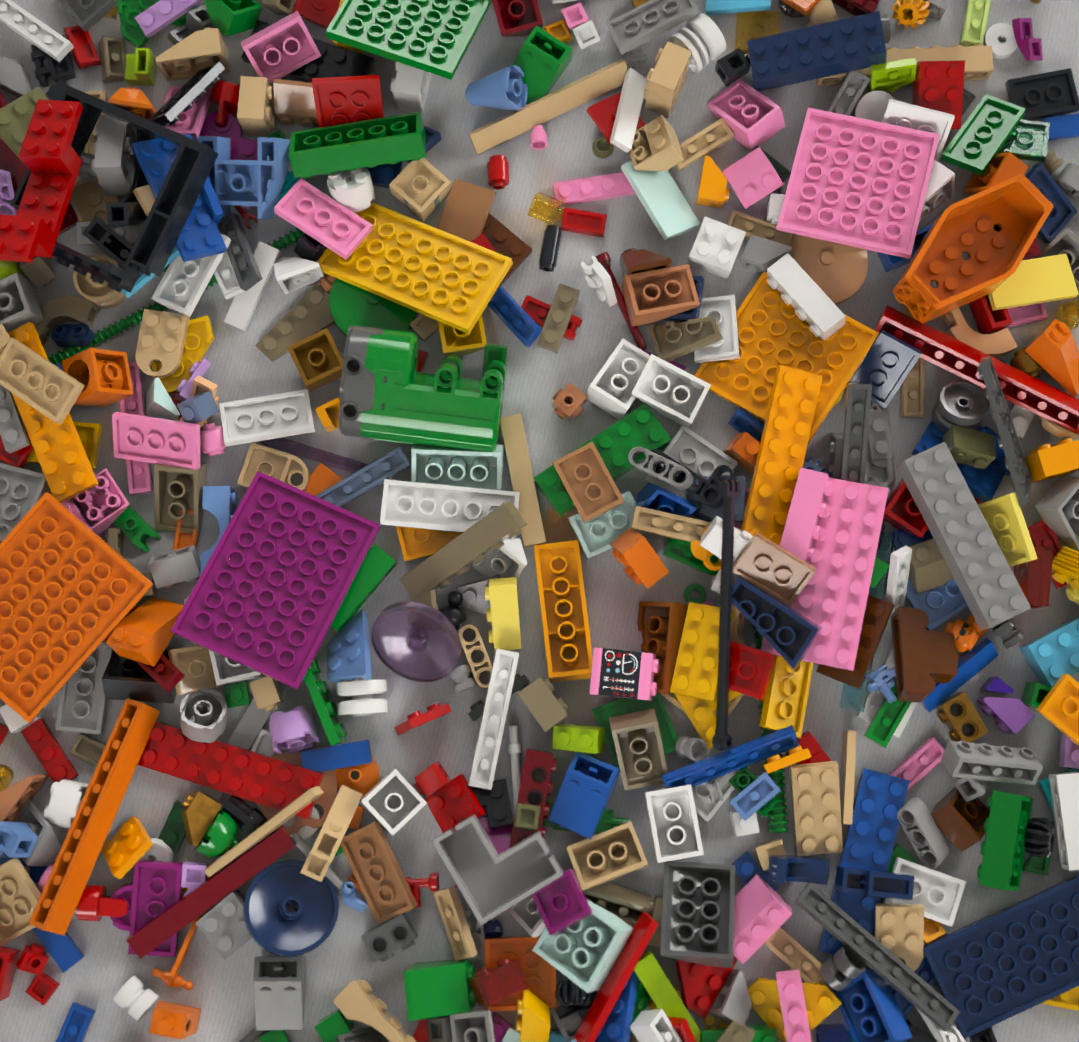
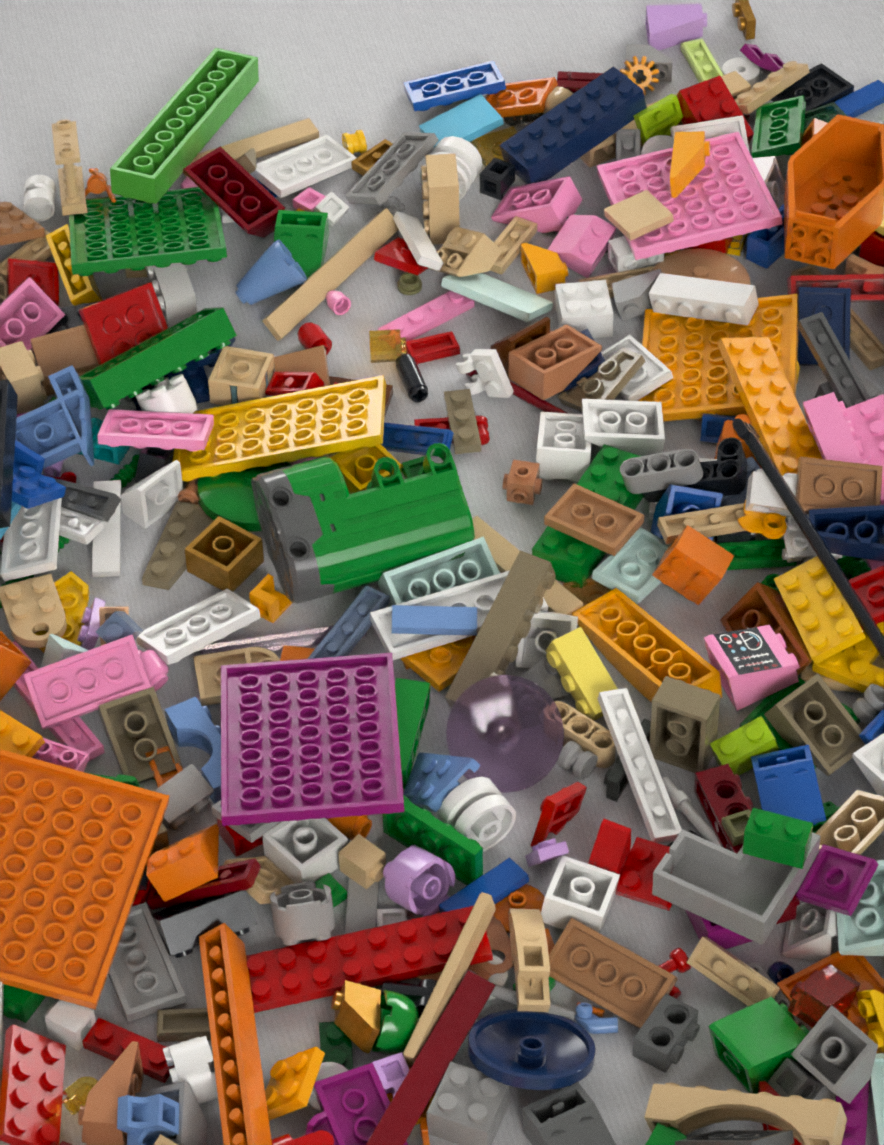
camera: 30 degrees left, 35 degrees down
(391, 754) = (546, 852): none -> lavender plate
(424, 512) = (434, 620): none -> medium blue tile
(454, 218) = (292, 382): none -> red slope
(525, 871) = (777, 838): none -> green brick
(803, 188) = (638, 215): none -> tan tile
(876, 149) = (687, 159): none -> light orange slope
(1008, 78) = (771, 86): none -> tan plate

